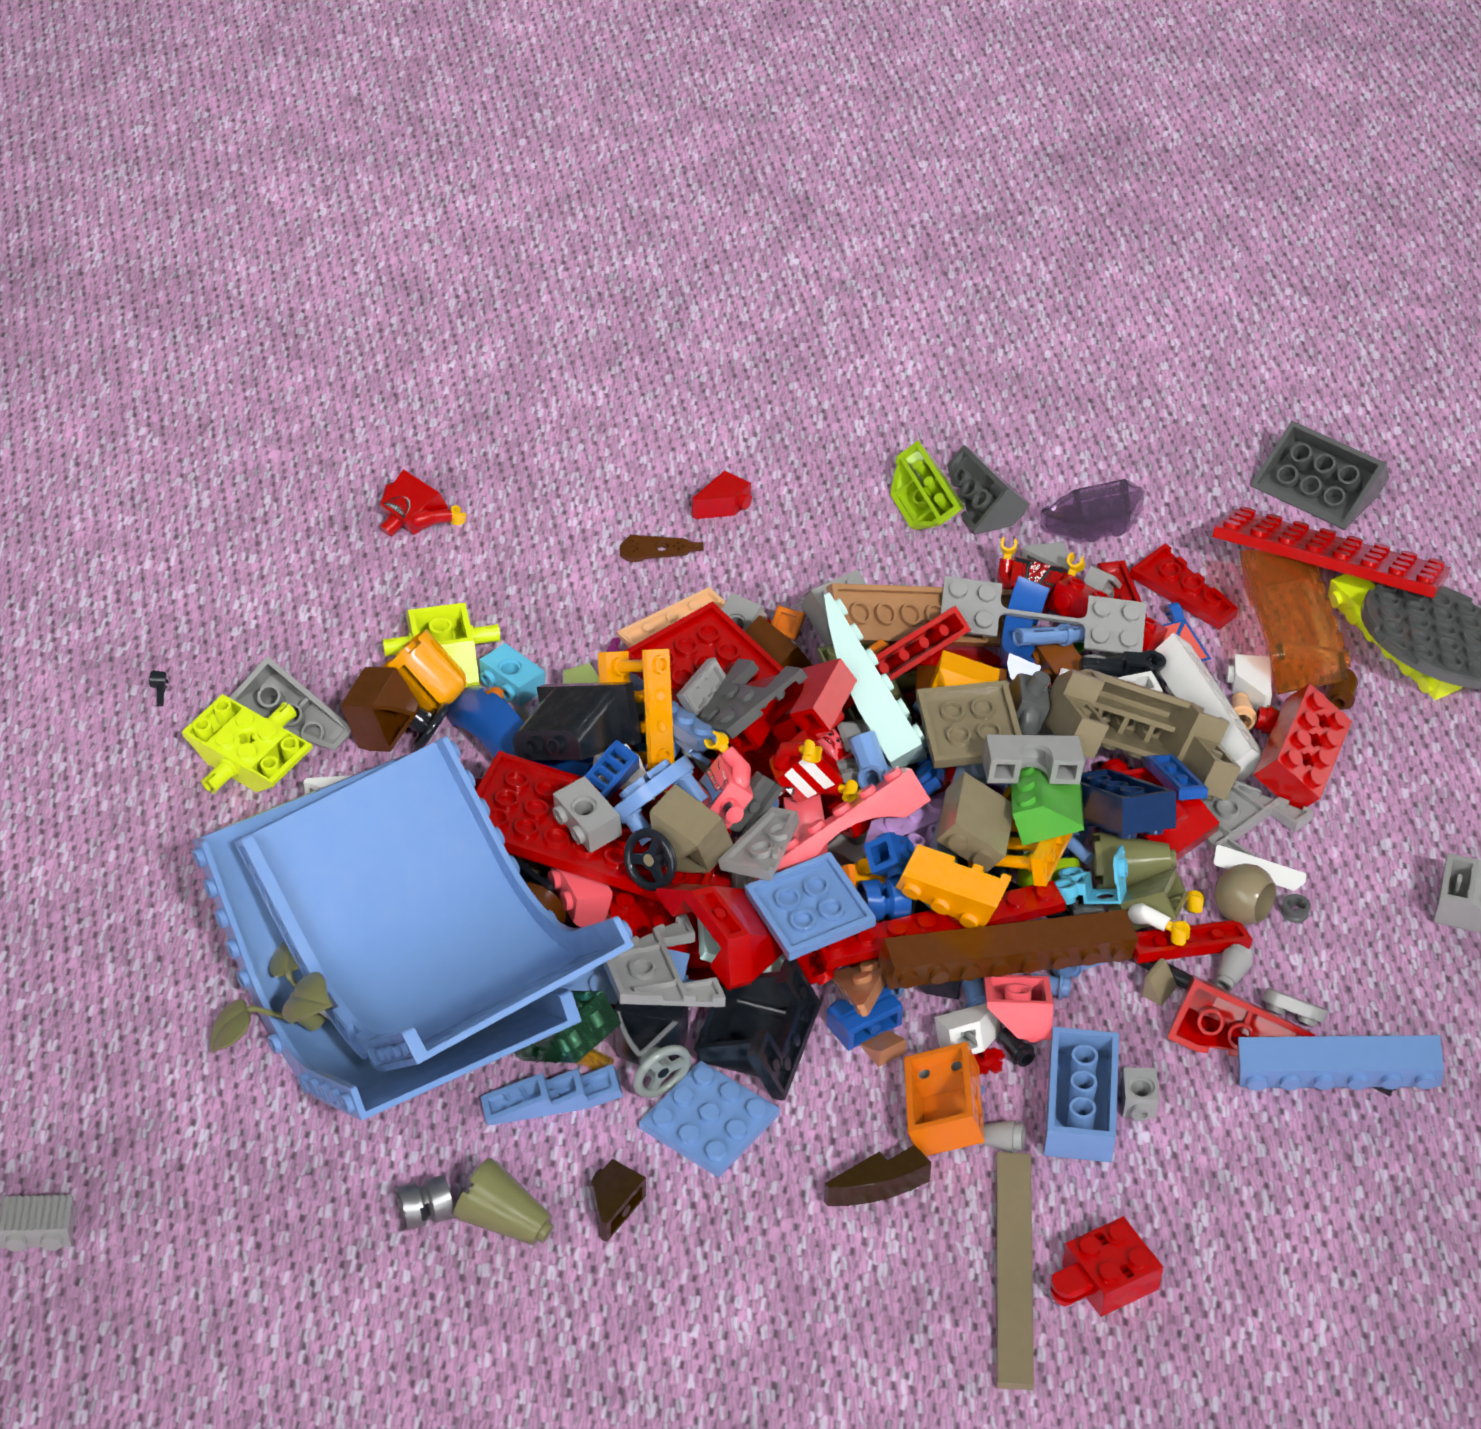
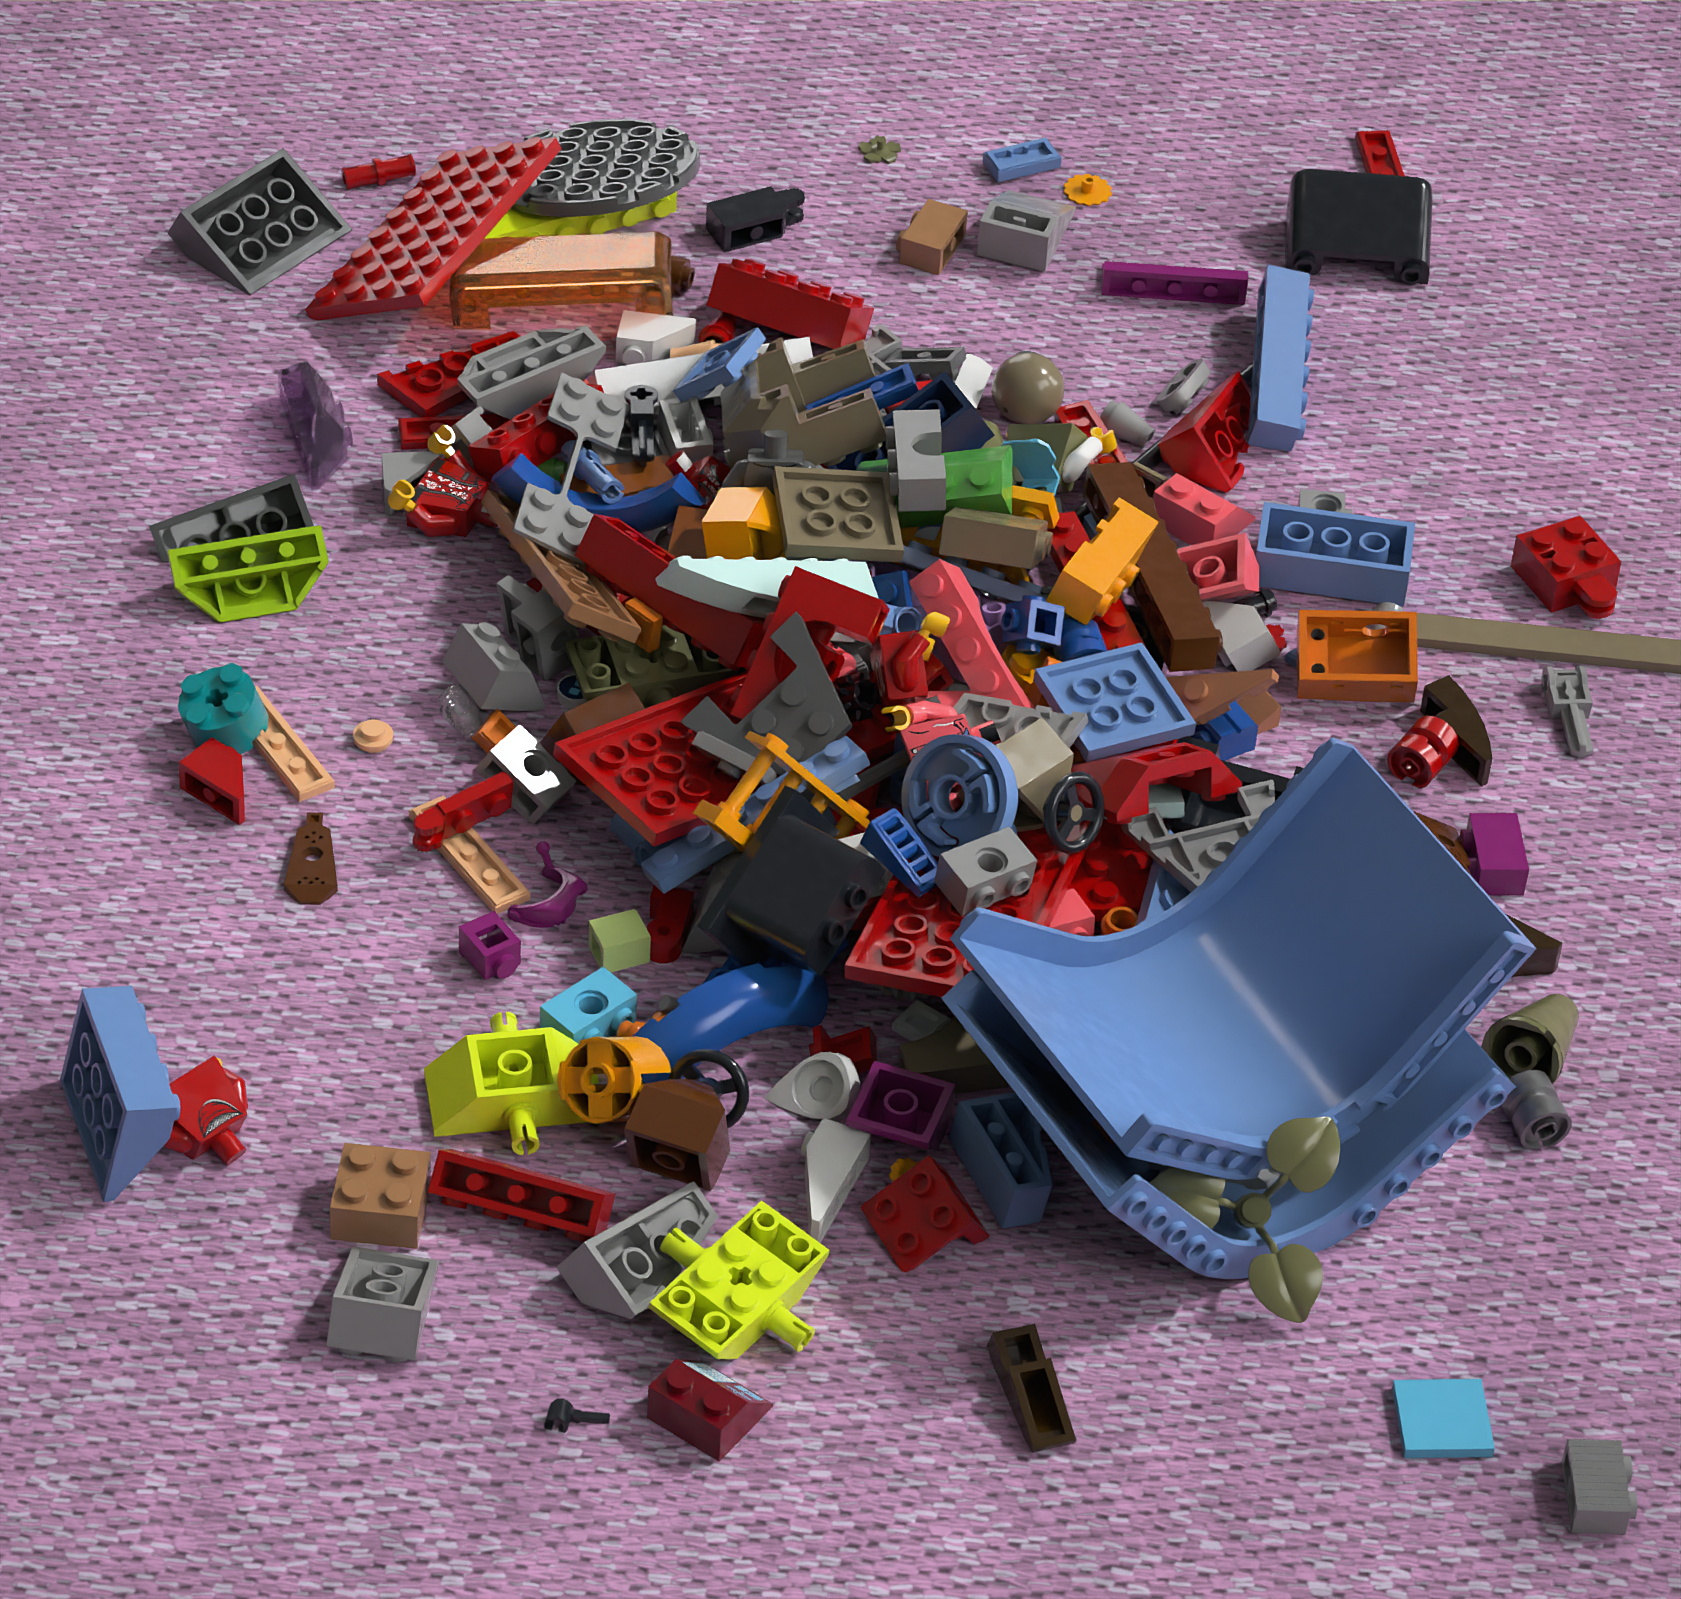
camera: 90 degrees left, 0 degrees up
(119, 1138) = (1443, 1418): none -> medium azure tile
(156, 741) = (704, 1406): none -> dark red slope
(160, 902) = (1031, 1387): none -> dark brown slope
(255, 594) = (381, 1304): none -> light grey slope
(339, 647) = (521, 1193): none -> red brick
(341, 587) = (380, 1195): none -> medium nougat brick
(408, 445) = (117, 1087): none -> medium blue slope
(572, 625) = (495, 954): none -> magenta brick
(685, 592) = (462, 811): none -> red hinge
(725, 1196) = (1496, 852): none -> magenta brick
(741, 1151) = (1448, 837): none -> reddish brown piece
(770, 526) = (291, 757): none -> light nougat tile
(779, 486) = (222, 706): none -> teal brick
(782, 567) = (373, 736): none -> light nougat plate
(838, 1147) = (1423, 751): none -> red wheel
(934, 1263) = (1571, 701): none -> light grey connector
(1130, 1008) = (1197, 513): none -> coral slope
(1165, 684) = (720, 366): none -> medium blue plate
(1169, 599) = (528, 368): none -> light grey wedge
(1270, 837) = (929, 360): none -> dark grey hinge
(1413, 534) = (378, 171): none -> red pin
(1429, 735) = (753, 217): none -> black hinge
(1437, 1004) = (1174, 283): none -> magenta fence
(1438, 837) = (932, 236): none -> medium nougat brick

